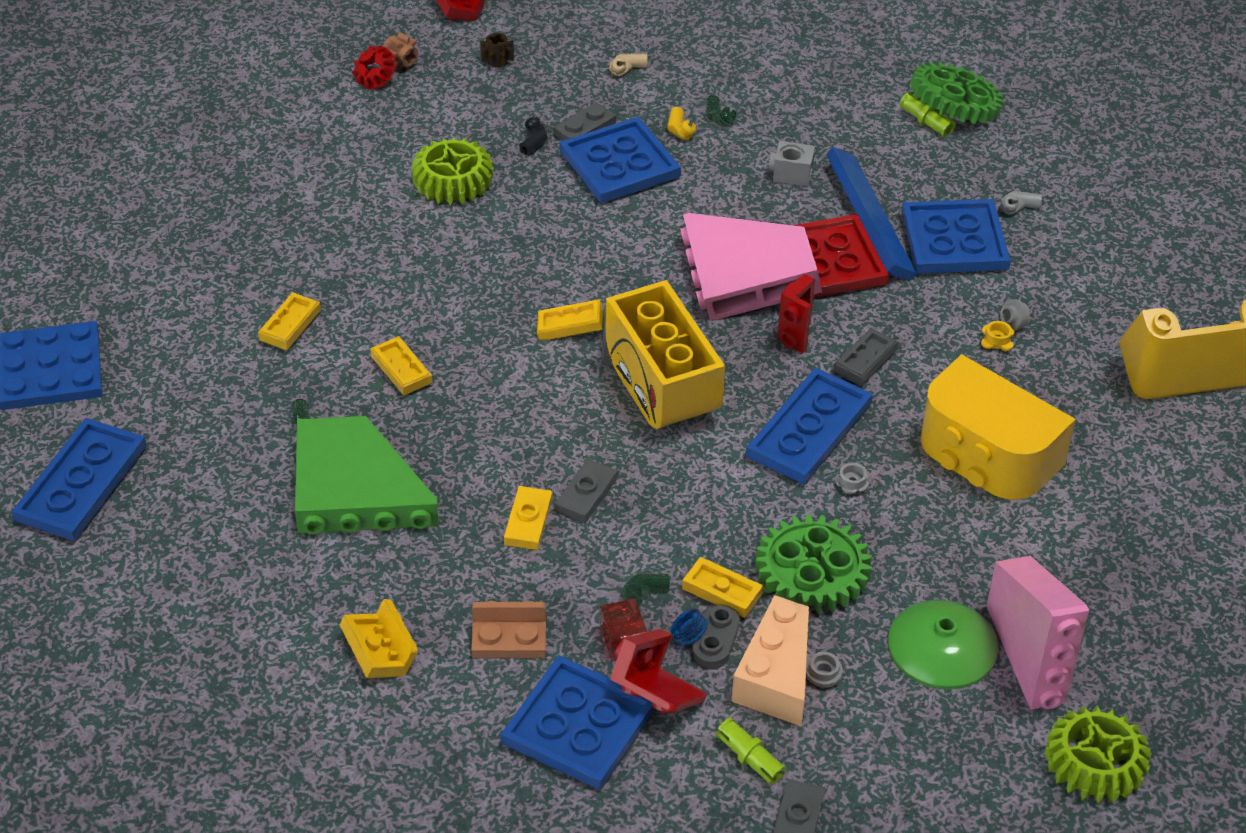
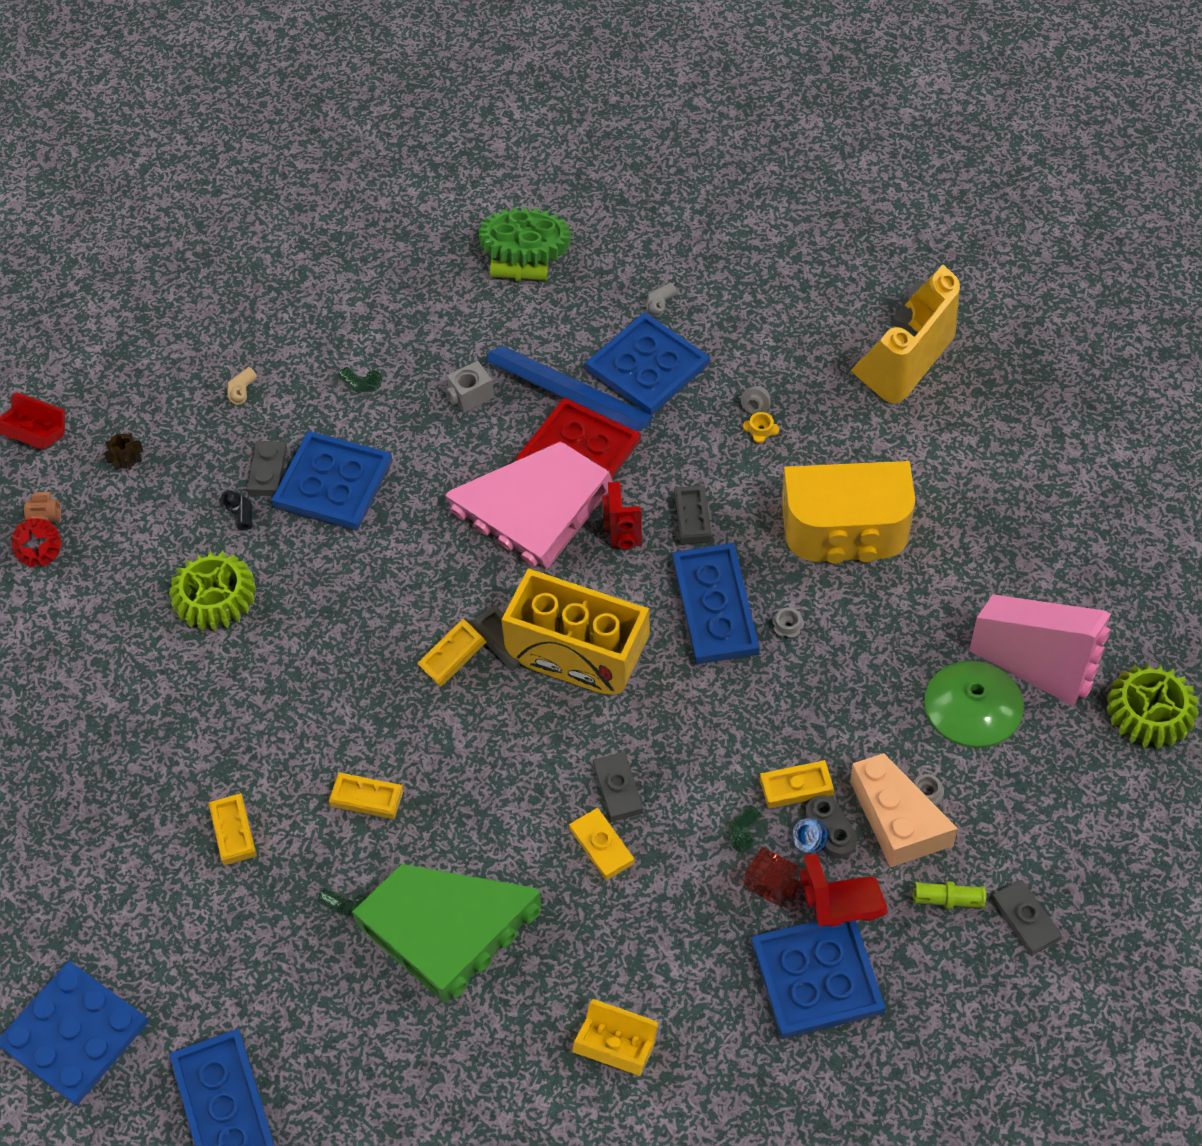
camera: 40 degrees left, 10 degrees up
(509, 629) = (692, 948): nougat bracket -> none
(679, 127) = (349, 417): yellow arm -> none
(813, 563) = (830, 737): bright green gear -> none

